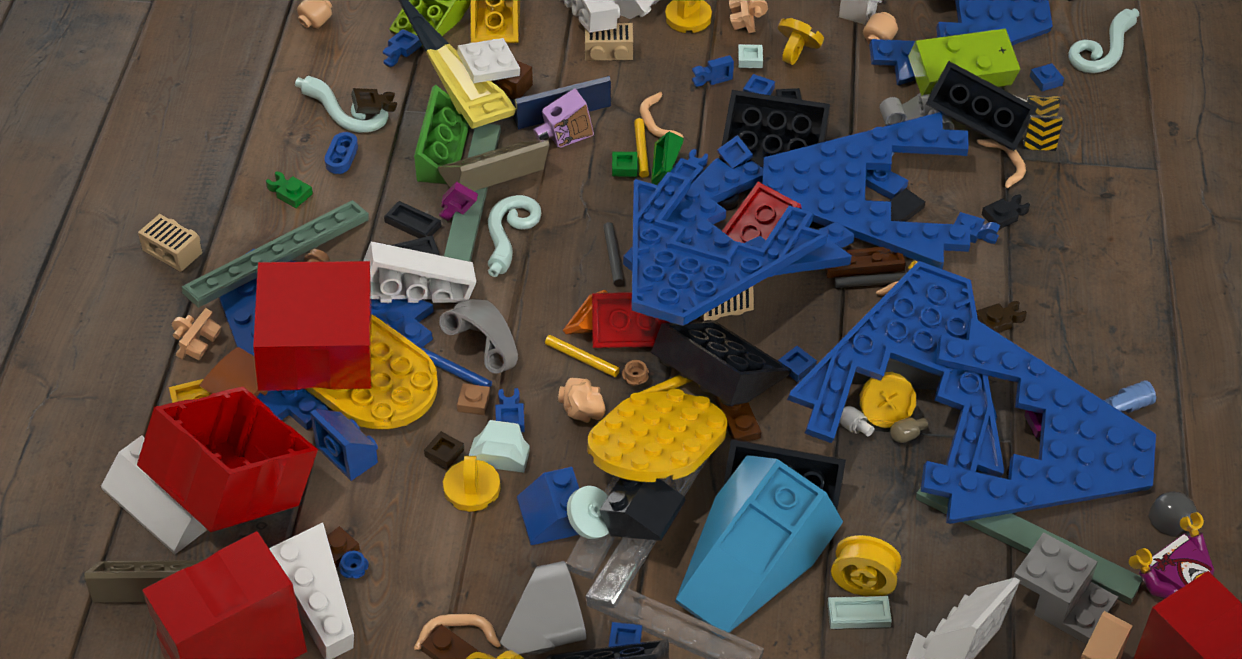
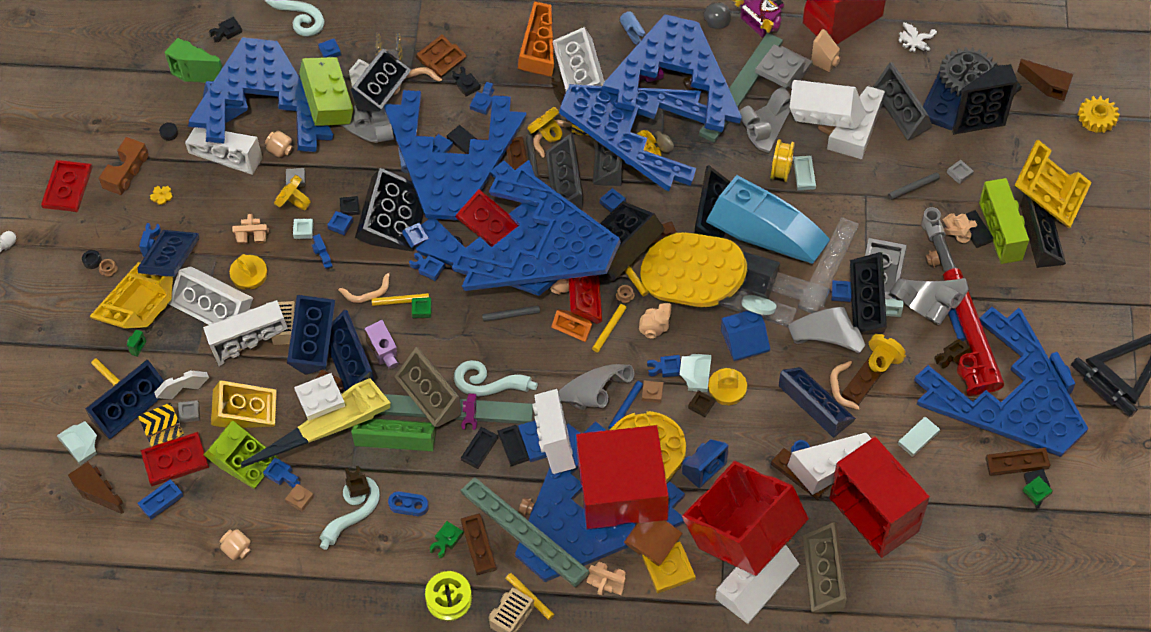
camera: 90 degrees left, 10 degrees up
(193, 265) = (537, 603): none -> yellow bar
(206, 175) = (461, 593): none -> neon yellow wheel
(273, 215) = (478, 544): none -> reddish brown plate
(369, 64) = (299, 497): none -> medium nougat plate
(430, 586) = (815, 400): none -> dark blue slope
(587, 55) = (310, 333): none -> dark blue slope
(665, 154) = (410, 285): green slope -> none
(826, 315) = (564, 170): none -> dark grey slope
(833, 51) = (296, 171): none -> light grey tile
(952, 559) = (767, 122): none -> light grey panel
(1047, 325) = (578, 59): none -> white slope
(1048, 185) = (441, 55): none -> dark orange slope
(1083, 281) = (537, 45): none -> orange wedge

